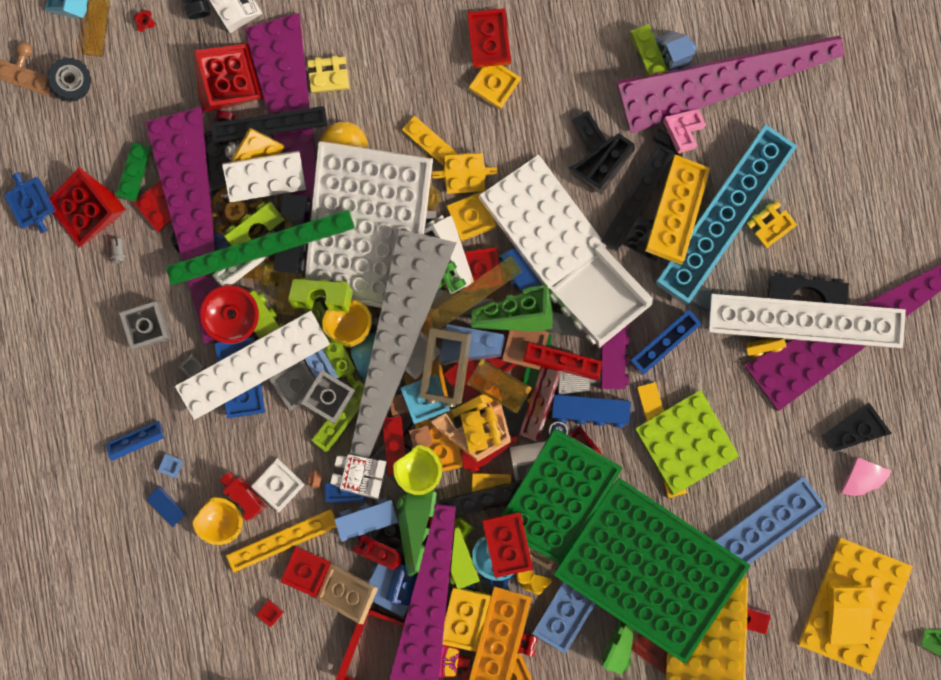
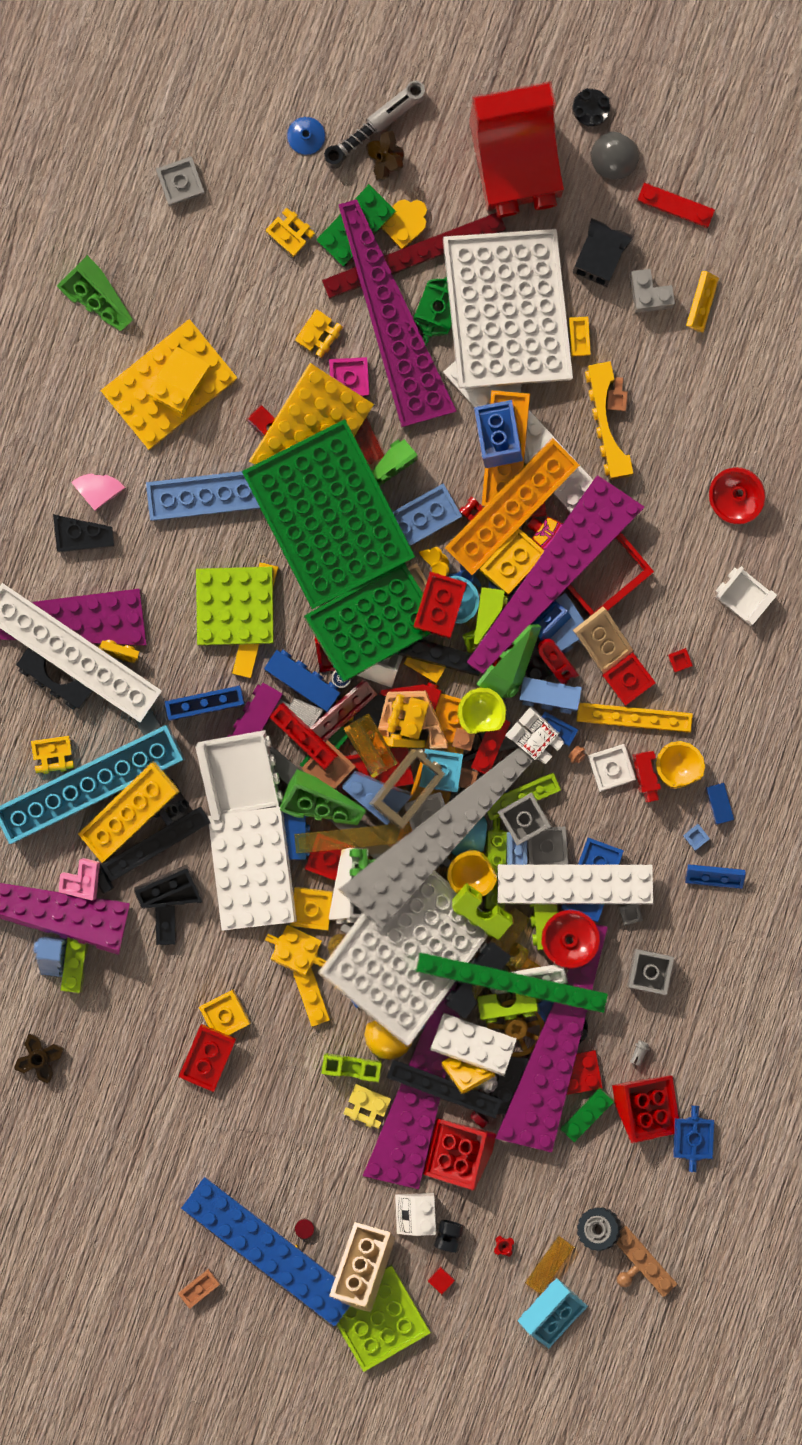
camera: 155 degrees left, 0 degrees up
(367, 97) = (351, 1066): none -> lime arch

